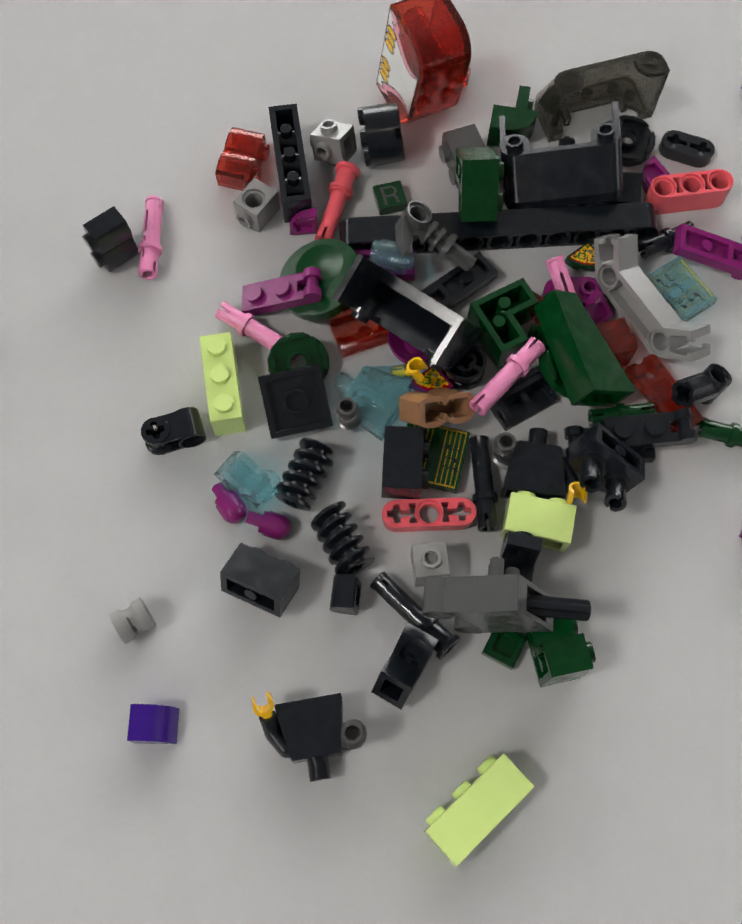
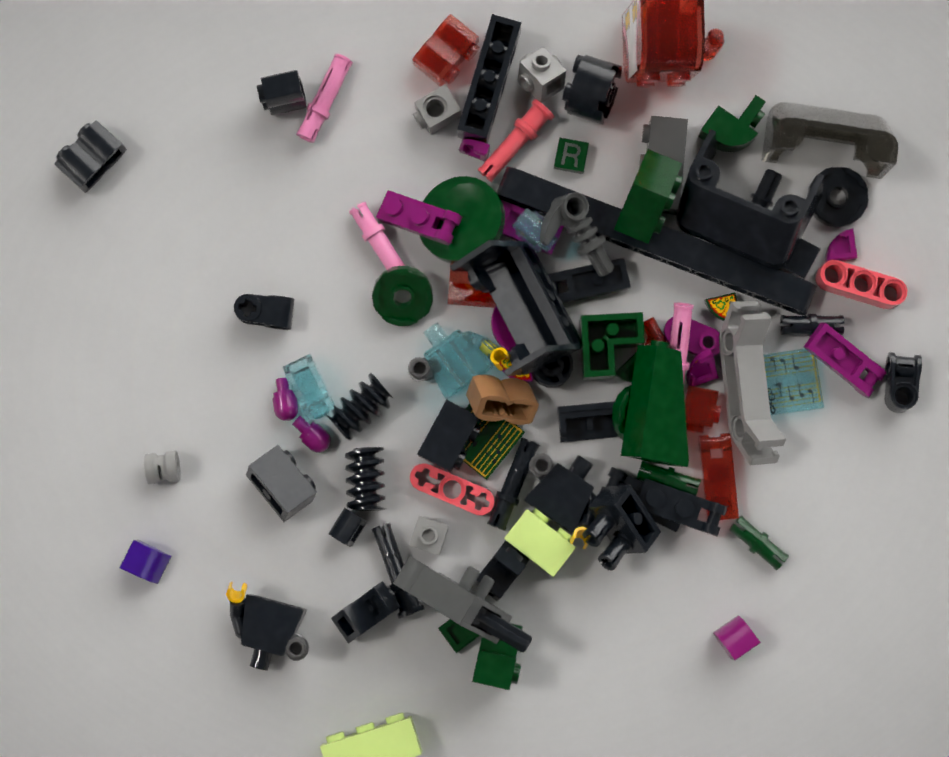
camera: 30 degrees right, 15 degrees up
(222, 384) = (326, 285): yellowish green brick -> none
(295, 401) = (382, 333): black plate -> none
(516, 367) = (578, 402): bright pink pin -> none
(686, 148) = (896, 228): black beam -> none
(701, 387) = (750, 489): black piece -> none

